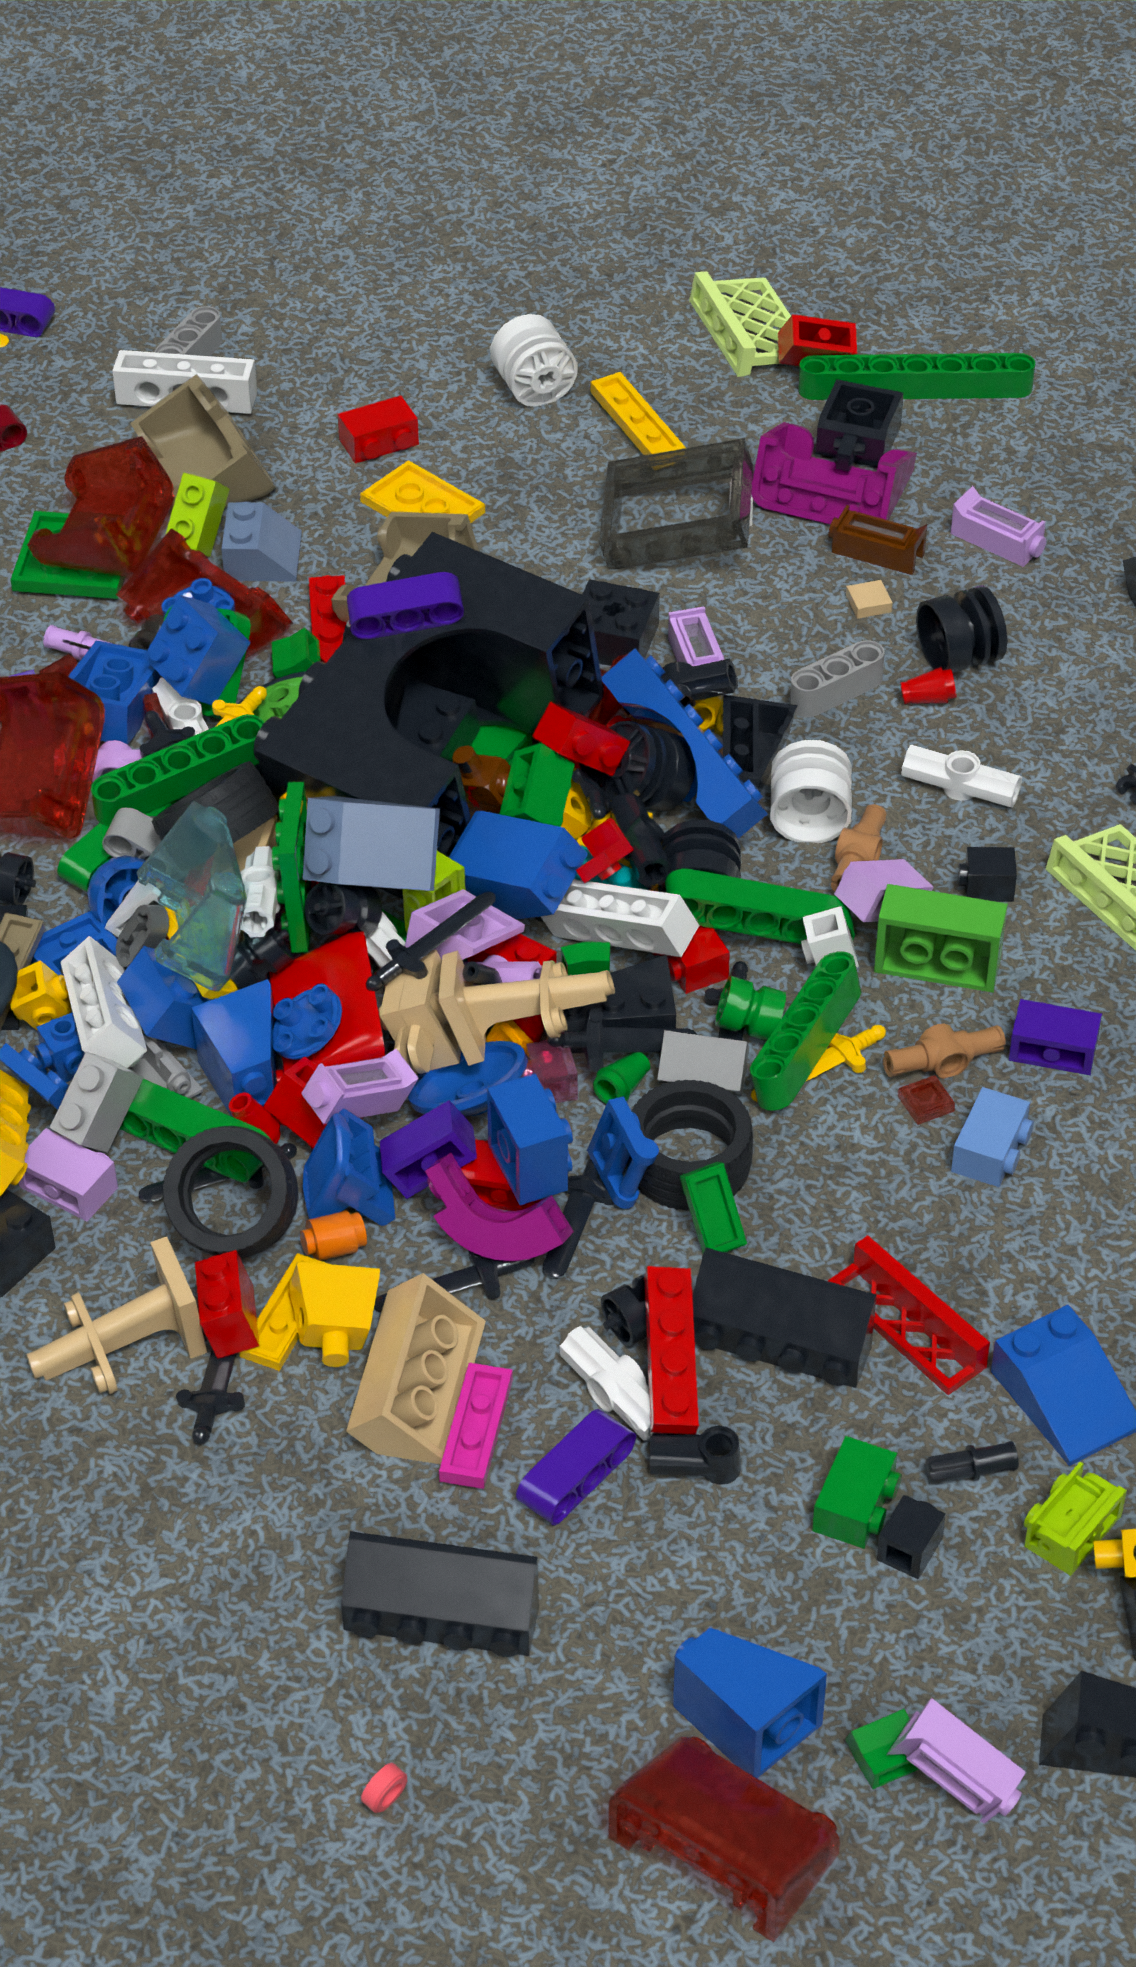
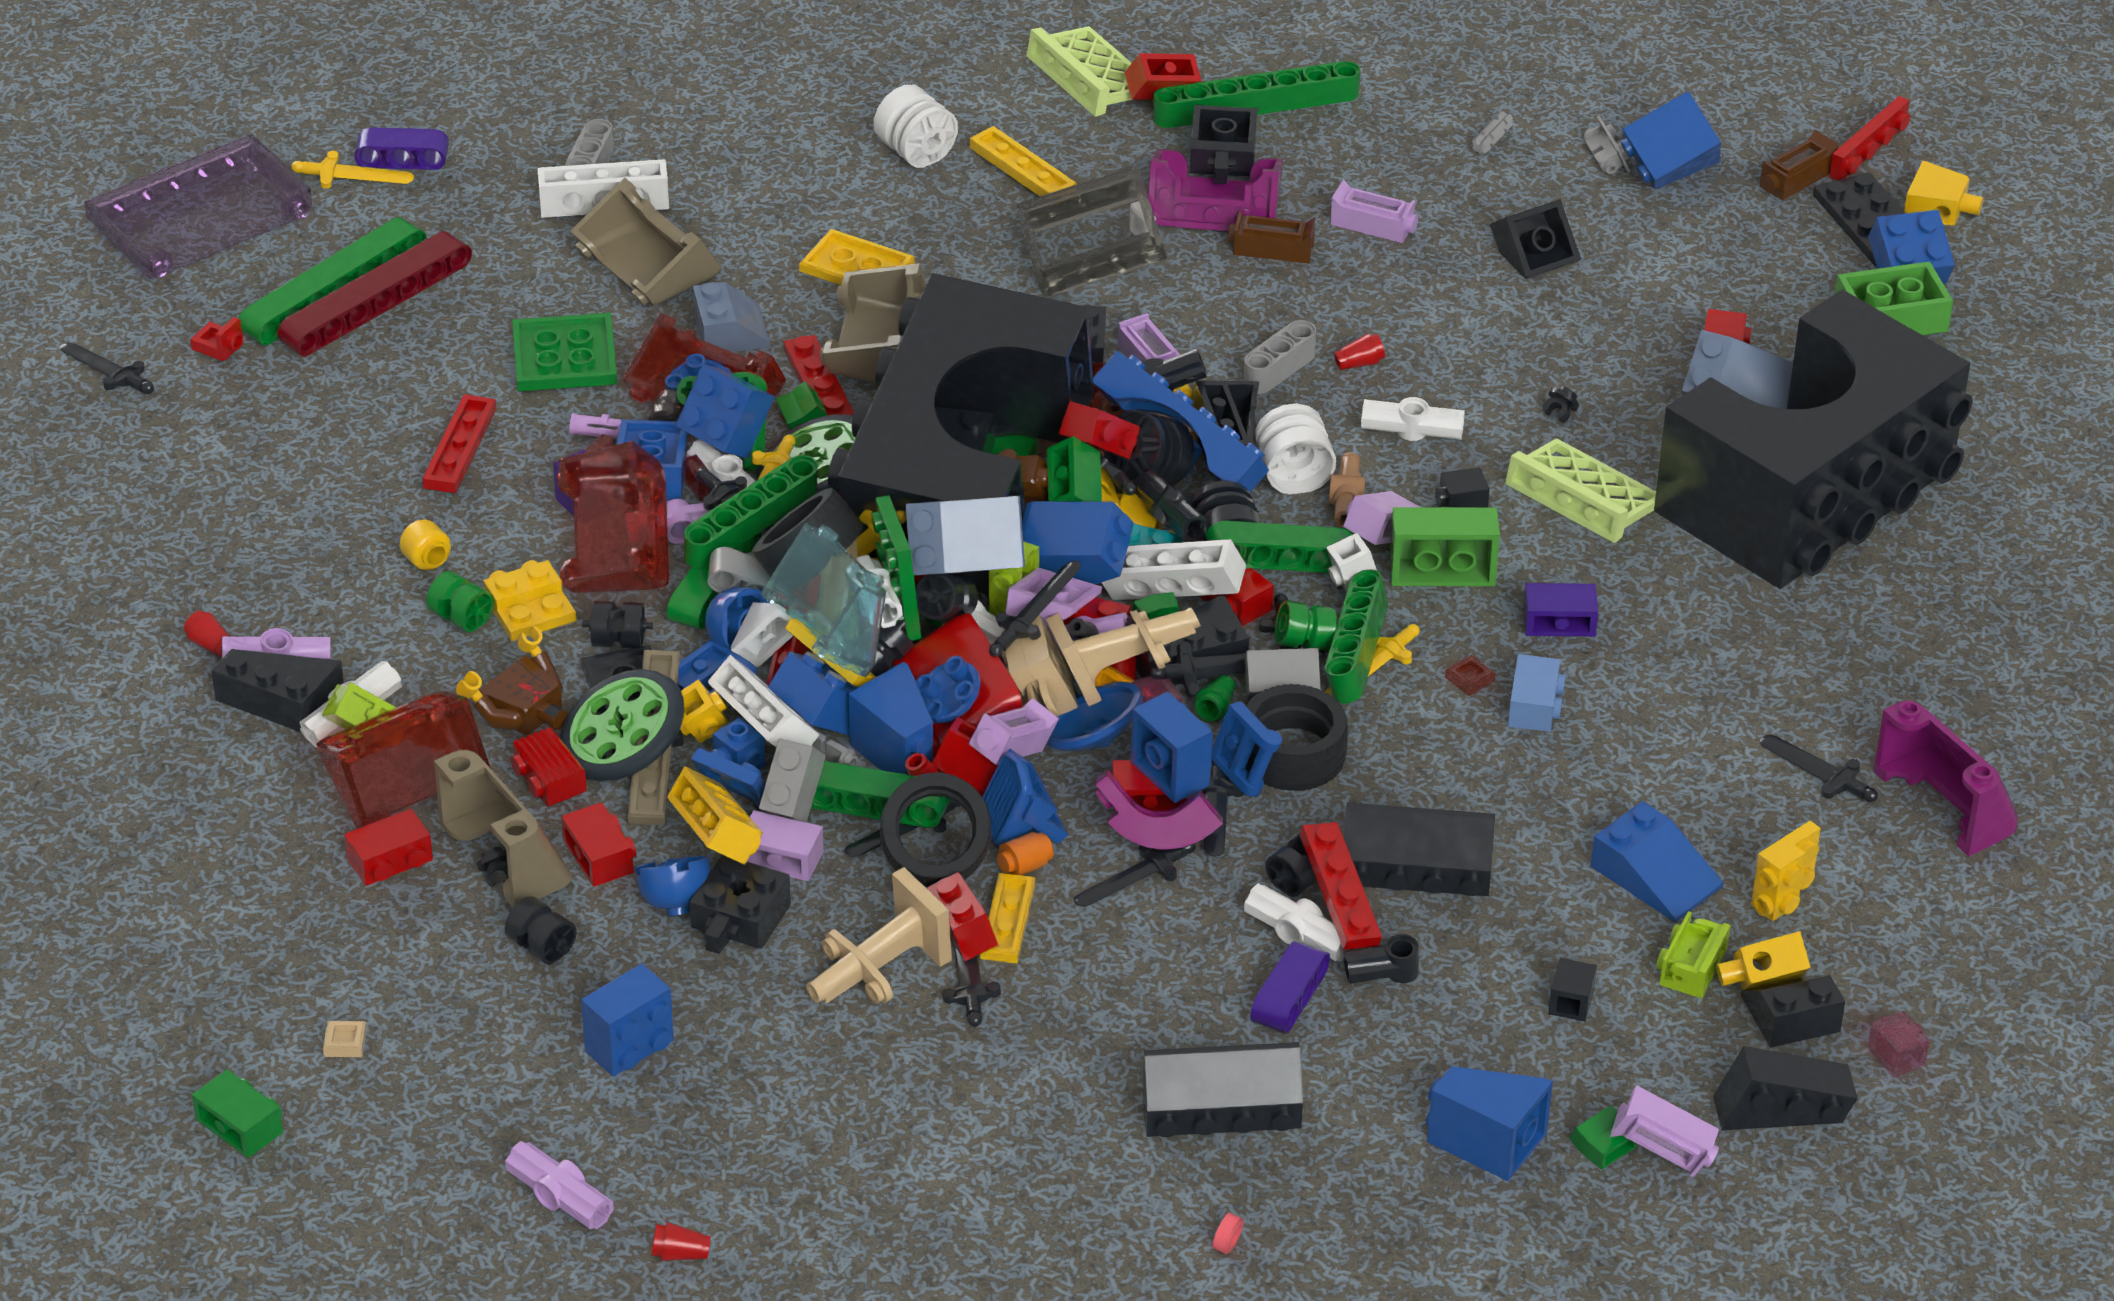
camera: 15 degrees left, 5 degrees down
(116, 513) = (588, 308): clear red windscreen -> none
(145, 928) = (773, 644): dark grey beam -> none
(198, 511) = (668, 294): lime hinge -> none
(333, 1307) = (1049, 904): yellow torso -> none
(378, 429) = (794, 205): red brick -> none
(405, 605) = (933, 336): dark purple beam -> none
(415, 1372) = (1134, 941): tan slope -> none
(423, 1142) = (1074, 774): dark purple brick -> none
(476, 1425) = (1197, 972): dark pink plate -> none
(606, 846) = (1150, 516): red bracket -> none
(713, 1208) = (1331, 779): green tile -> none
(727, 1829) = (1506, 1206): clear red windscreen -> none
(855, 1493) = (1518, 966): green brick -> none
(869, 599) = (1281, 288): tan tile -> none
(926, 1315) = (1526, 830): red fence -> none
(944, 1051) = (1473, 635): medium nougat pin -> none
(962, 629) = (1375, 299): black wheel -> none
(972, 1462) = (1601, 931): black axle -> none

